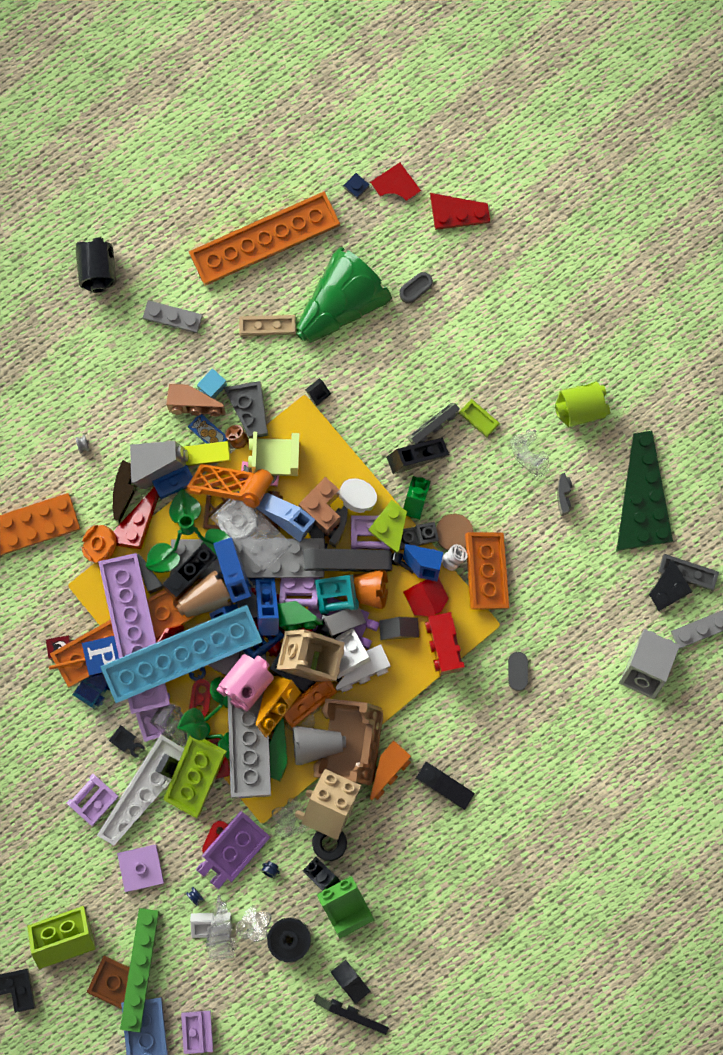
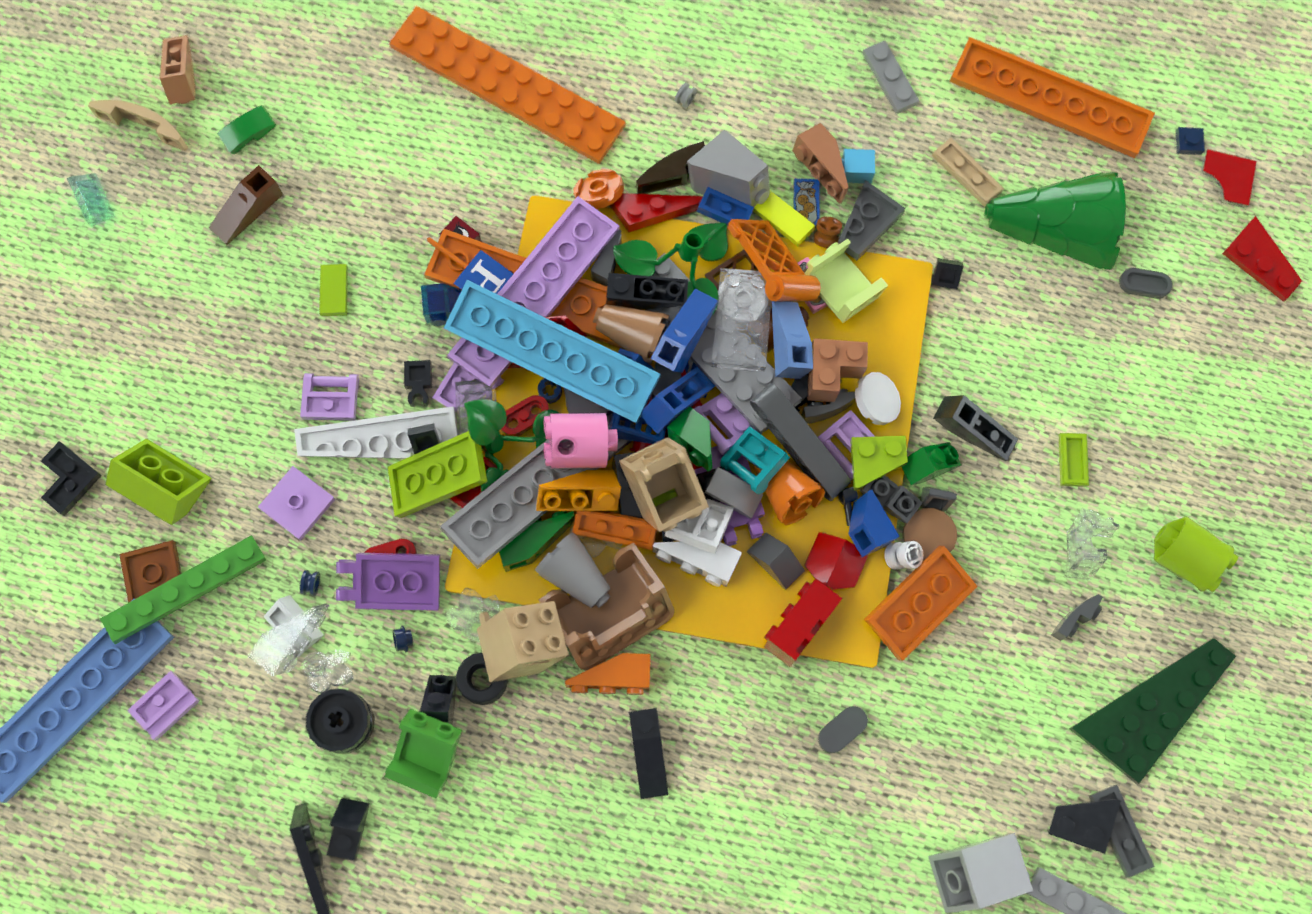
camera: 50 degrees right, 5 degrees down
(27, 746) = (333, 290): none -> lime tile
(434, 423) = (1024, 417): dark grey plate -> none
(438, 511) = (937, 498): none -> dark grey slope

